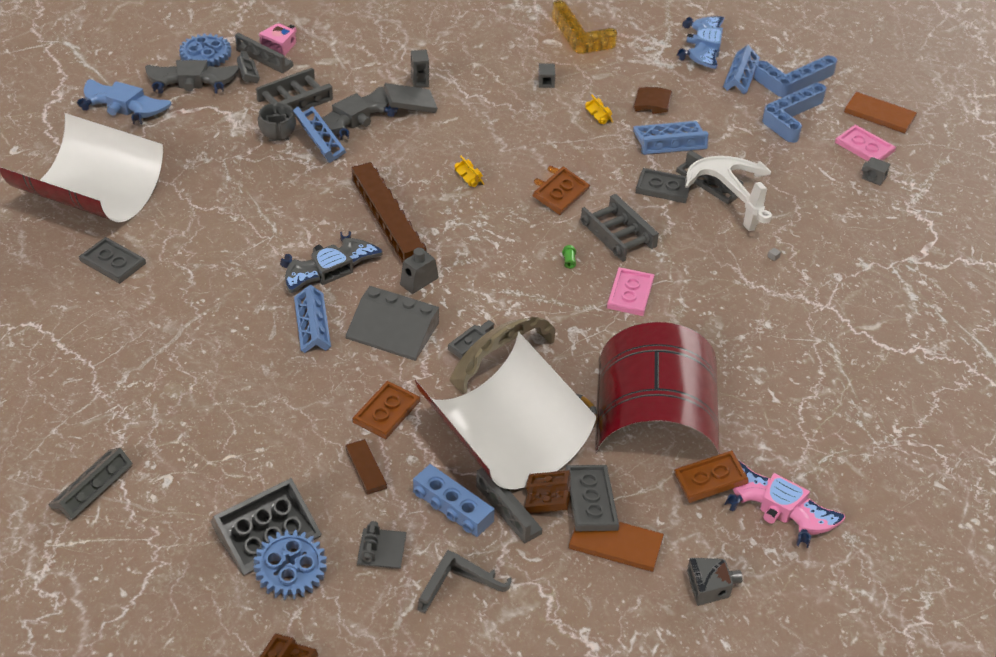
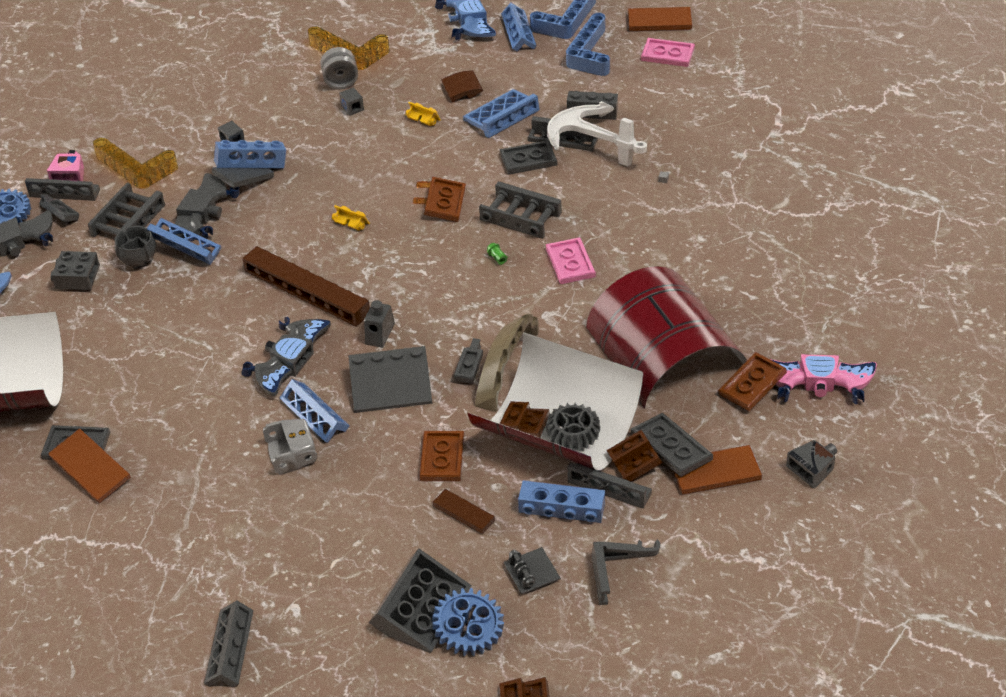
camera: 25 degrees left, 0 degrees up
(105, 282) = (89, 465): none -> dark orange tile
(219, 121) = (75, 270): none -> dark grey brick
(270, 340) = (290, 445): none -> light grey piece
(332, 66) = (132, 170): none -> clear yellow beam
(415, 86) = (257, 159): none -> medium blue brick
(477, 412) = (525, 419): none -> reddish brown slope
(513, 438) = (573, 432): none -> dark grey gear
(554, 43) = (339, 68): none -> light grey wheel
(746, 152) = (578, 98): none -> dark grey brick
(875, 171) = (694, 71): dark grey brick -> none

